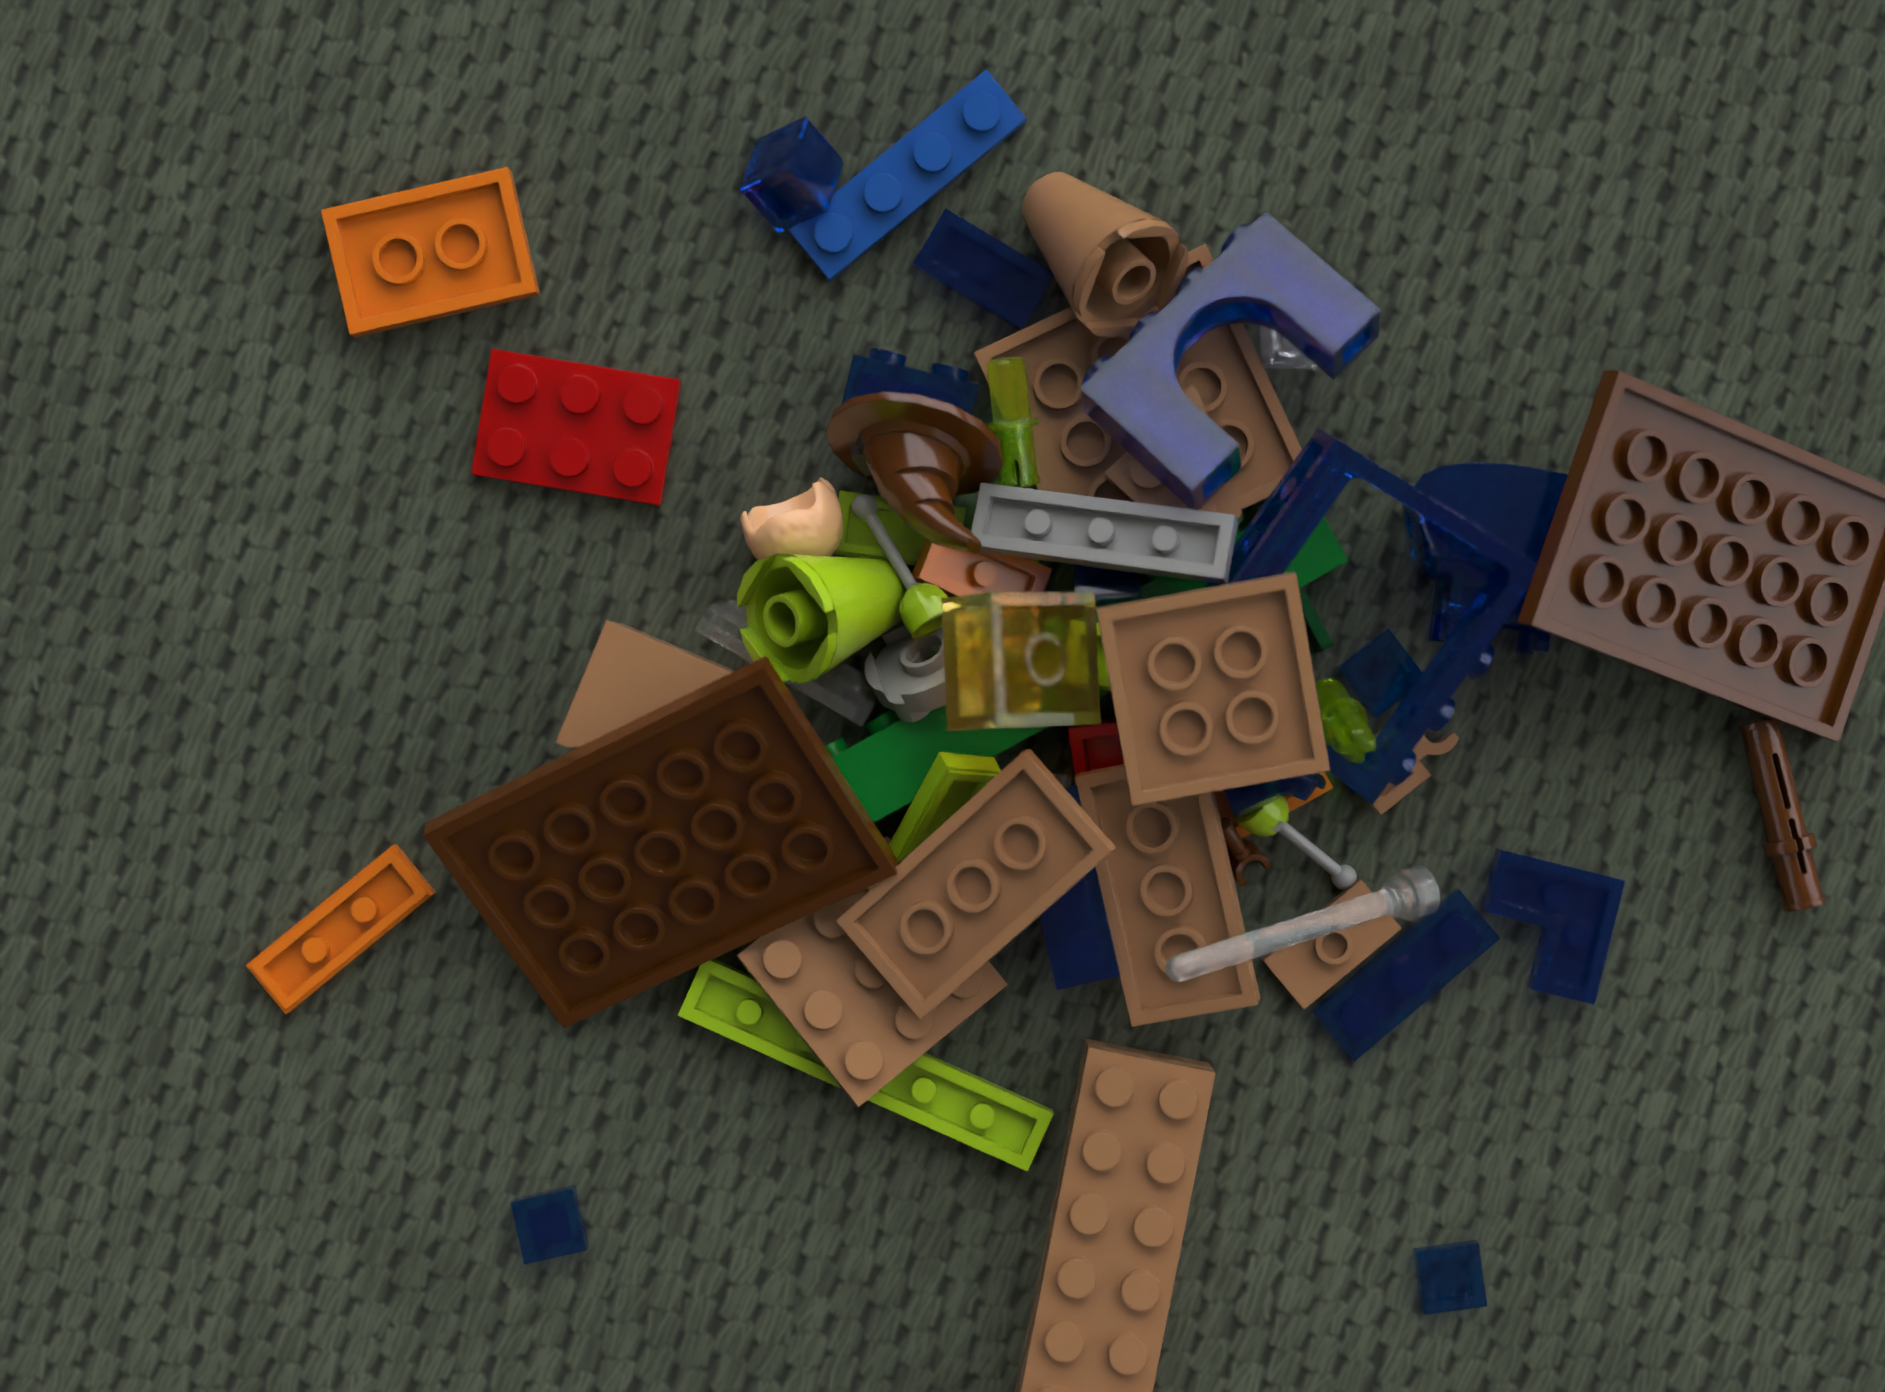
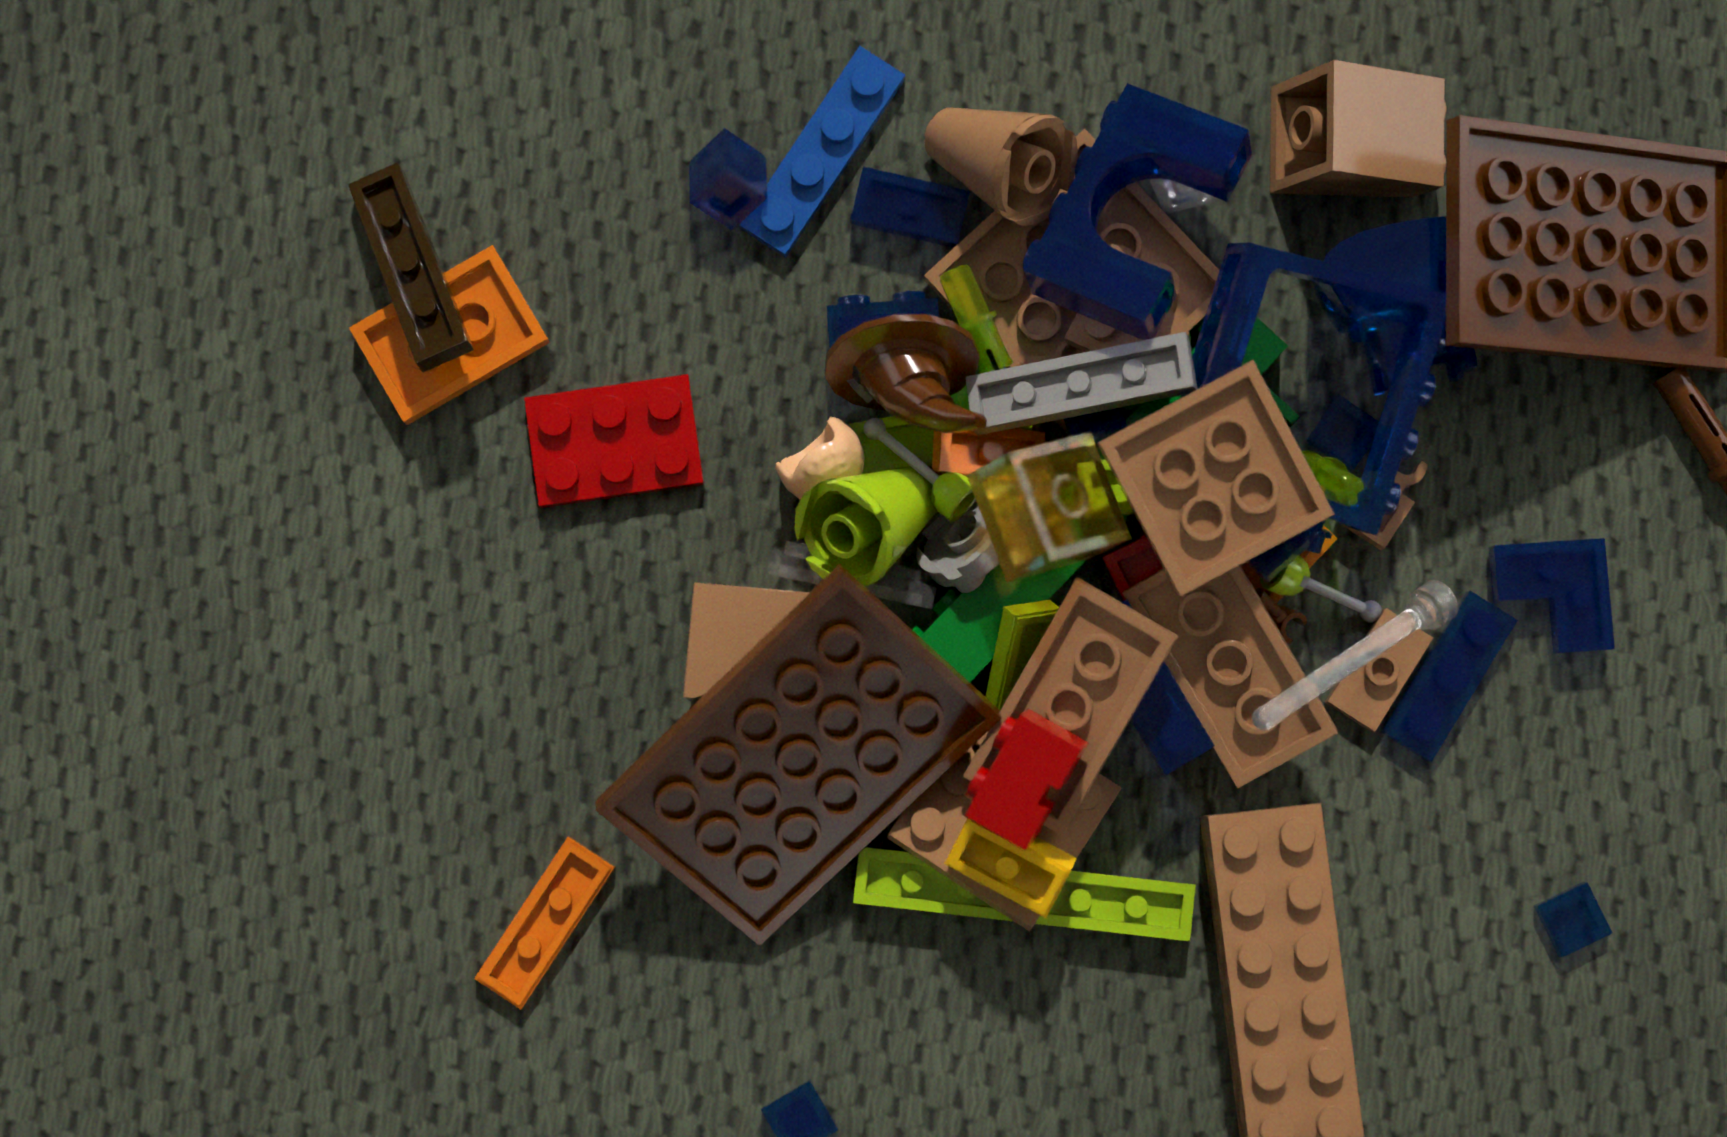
camera: 15 degrees left, 5 degrees down
(407, 164) = (410, 267): none -> dark brown plate
(858, 1028) = (1023, 876): none -> yellow slope
(913, 932) = (1014, 791): none -> red brick
(1507, 344) = (1357, 132): none -> medium nougat slope

